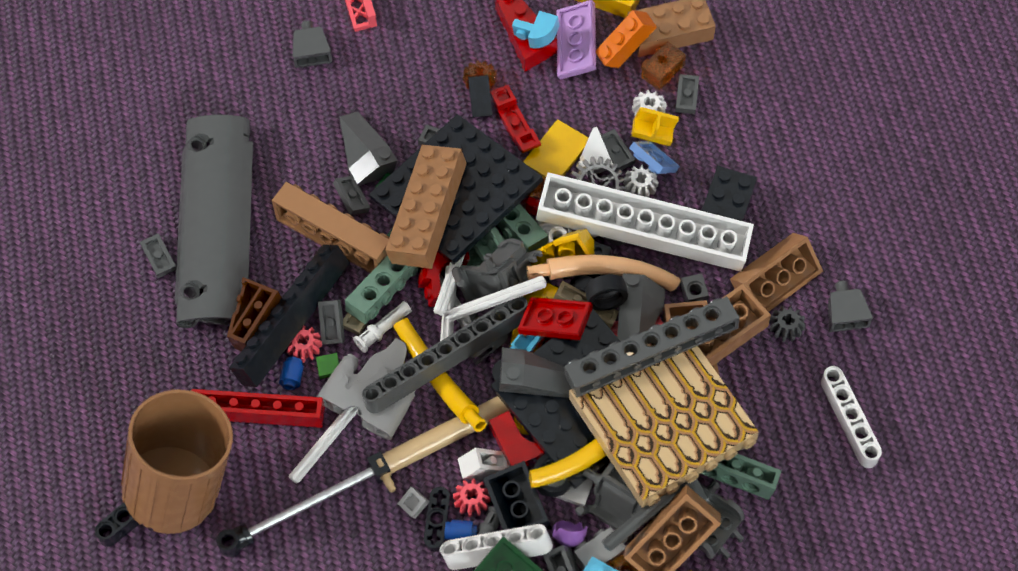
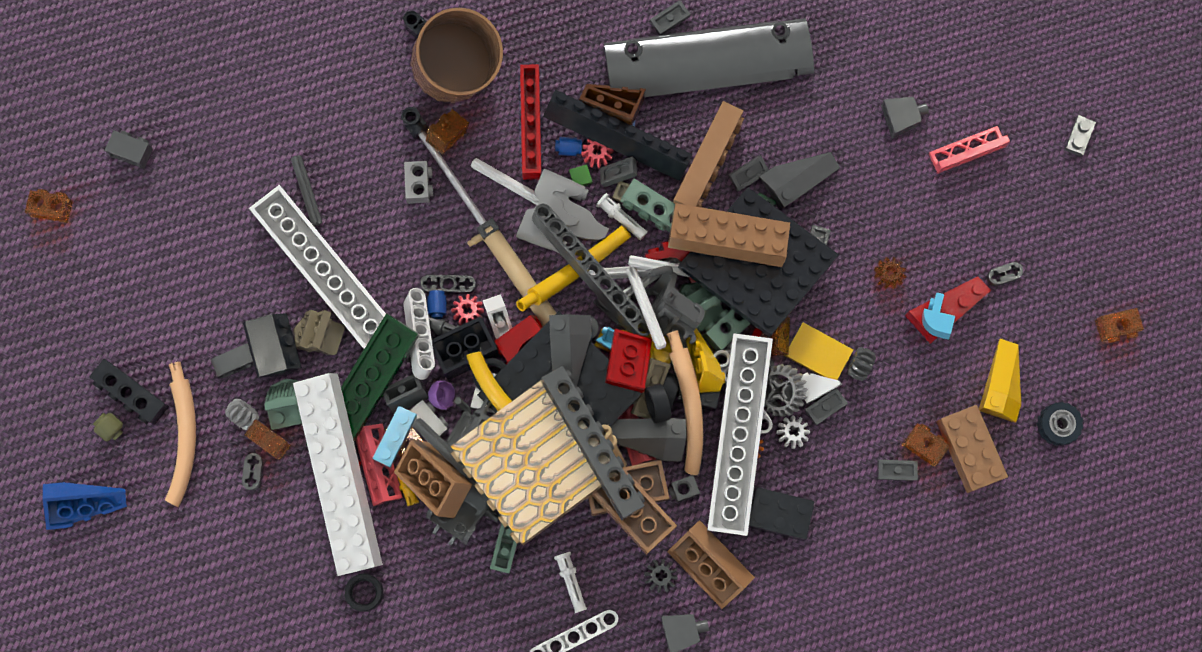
camera: 80 degrees right, 15 degrees up
(253, 500) = (447, 131): none -> clear orange brick
(308, 548) = (414, 182): none -> light grey brick
(413, 502) = (459, 262): light grey plate -> none
(480, 95) = (866, 275): black tile -> none
(513, 119) = (846, 310): red slope -> none
(574, 110) = (861, 363): none -> dark grey gear
(576, 40) = (943, 359): lavender tile -> none
(625, 39) = (942, 404): orange brick -> none
(649, 101) = (884, 436): white gear -> none
(654, 126) = (853, 440): yellow panel -> none
(656, 159) = (818, 442): medium blue plate -> none
(780, 417) = (568, 572): none -> white pin

